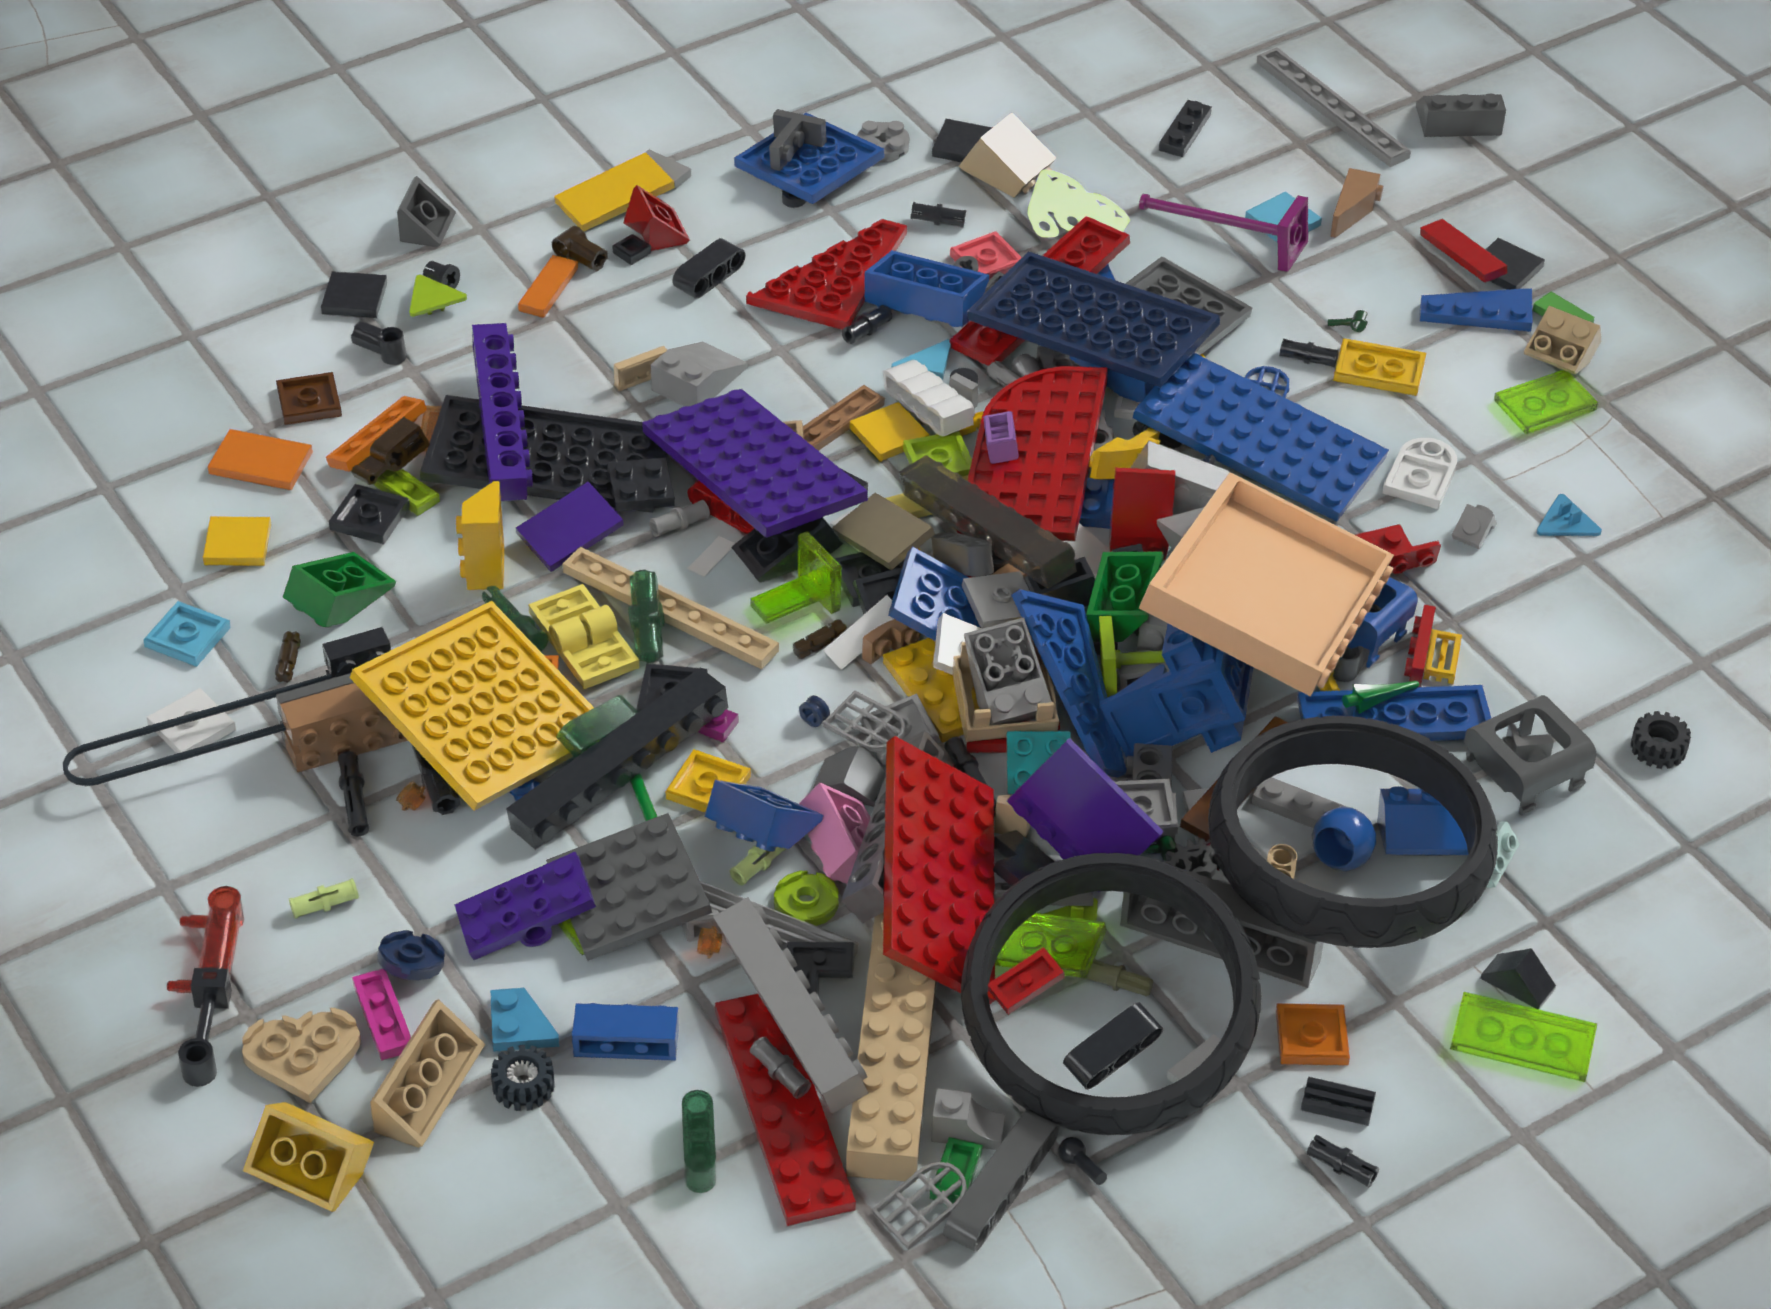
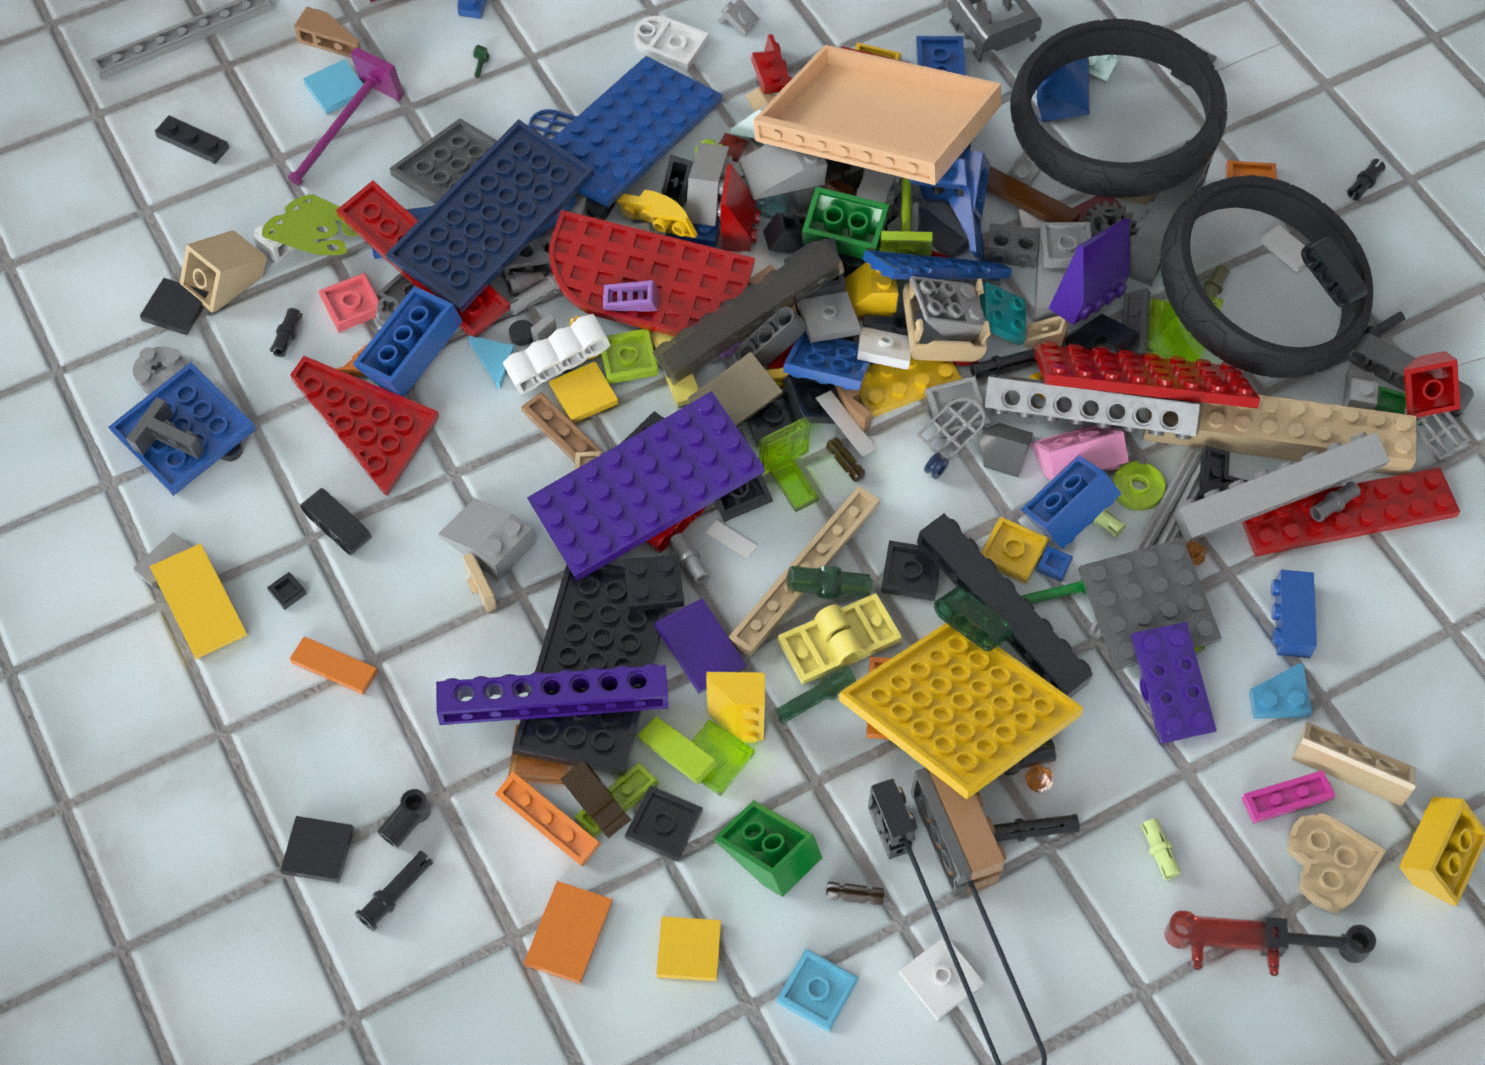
camera: 85 degrees left, 15 degrees up
(298, 337) = (384, 900): none -> black pin
(308, 398) = (477, 889): reddish brown tile -> none
(410, 955) = (1225, 775): dark blue tile -> none
(423, 215) = (207, 780): dark grey slope -> none
(432, 295) = (342, 769): lime piece -> none
(436, 551) = (728, 752): none -> clear neon green tile
(437, 518) = (677, 750): none -> lime tile
(445, 274) = (306, 762): black bush -> none
(518, 1063) = (1342, 676): black bush -> none
(575, 244) = (279, 638): dark brown piece -> none
(654, 220) = (257, 563): red slope -> none
(690, 820) = (1054, 563): none -> blue tile
(699, 1141) = (1409, 559): clear green beam -> none
(867, 324) = (437, 398): black pin -> none
(965, 1168) = (1432, 384): none -> red slope
(1026, 981) = (1283, 316): red plate -> none
(1309, 352) = (518, 90): black pin -> none
(1339, 1096) = (1315, 162): black tile -> none
(1344, 838) = (1083, 132): blue helmet -> none
(1379, 367) = (538, 50): yellow tile -> none
(1524, 1036) = (1247, 67): clear neon green tile -> none

